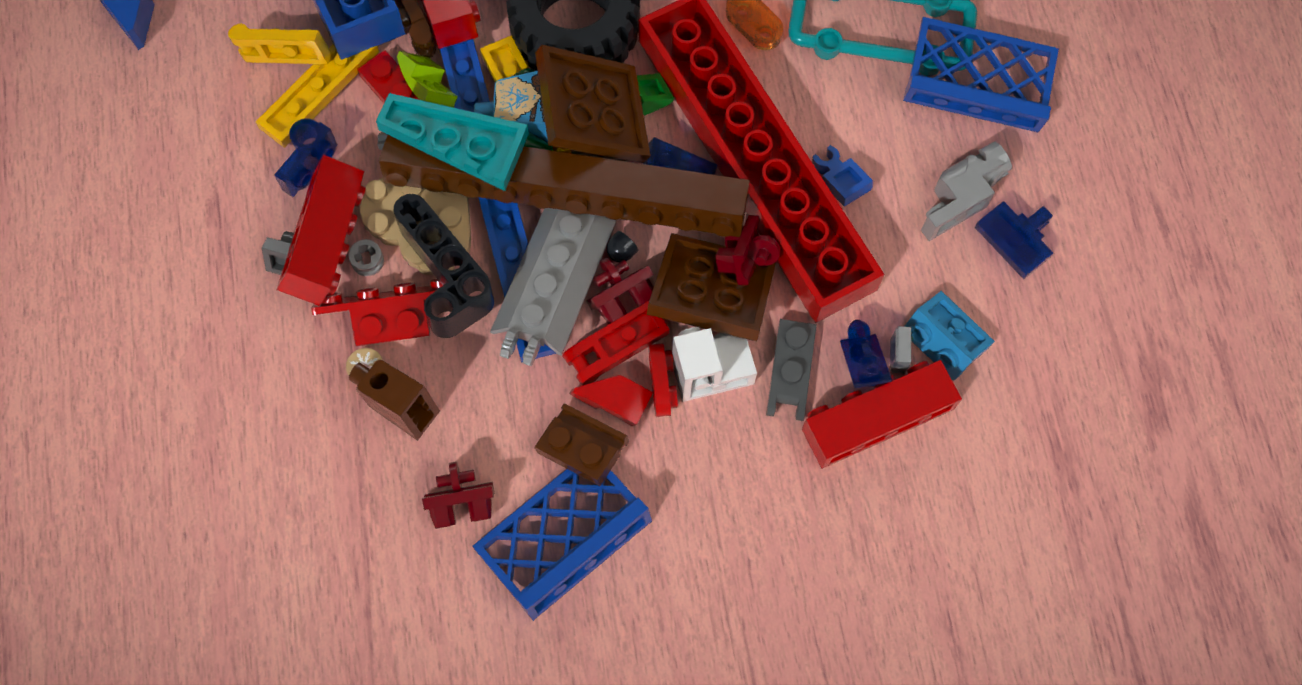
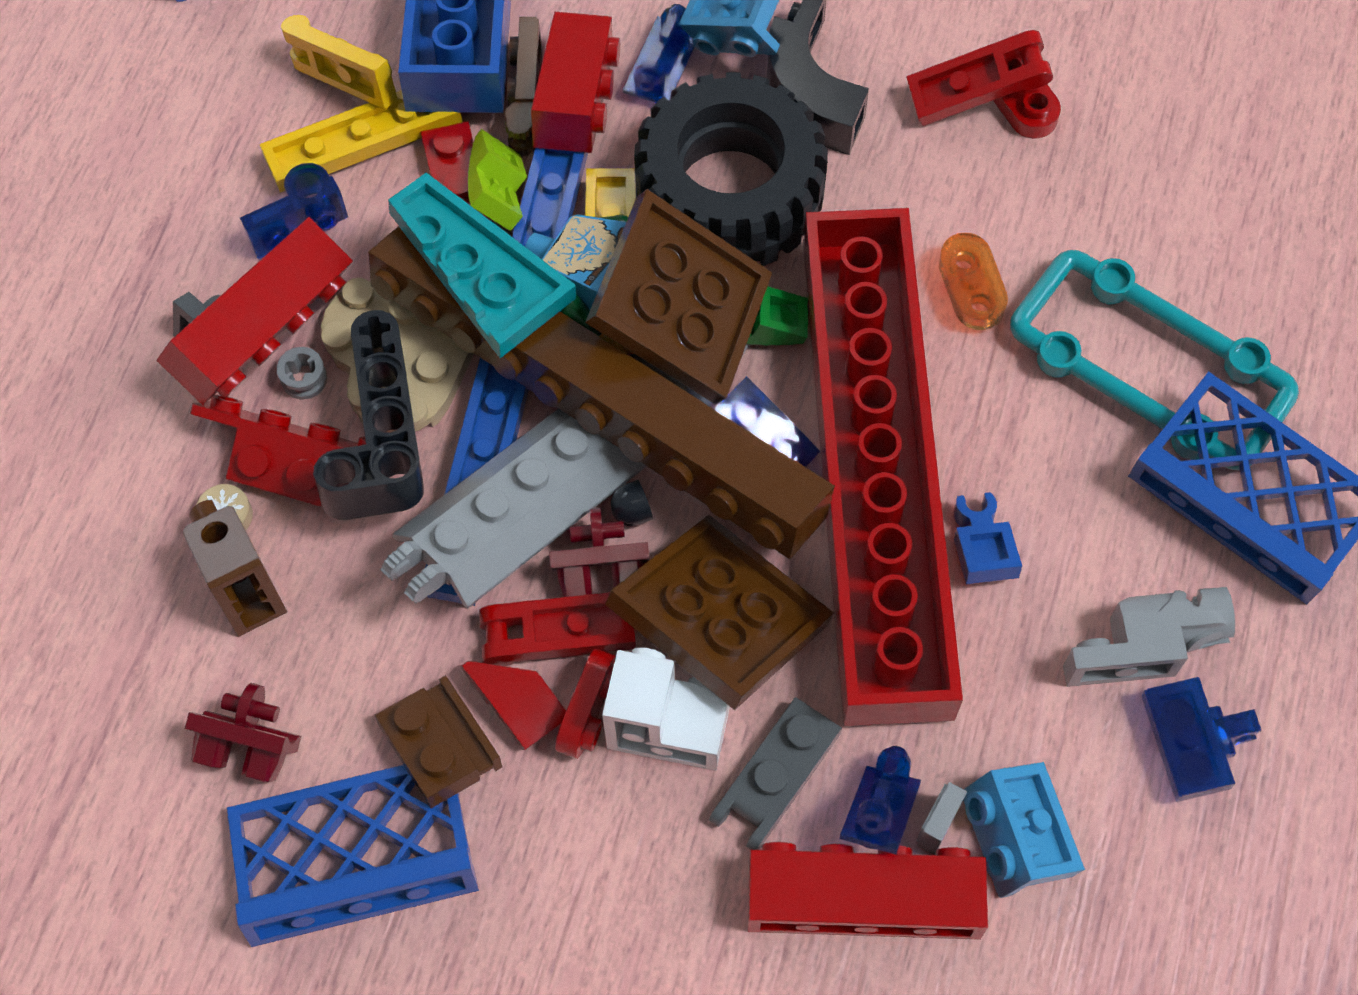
camera: 30 degrees right, 5 degrees down
(746, 251) = (789, 583): dark red hips -> none

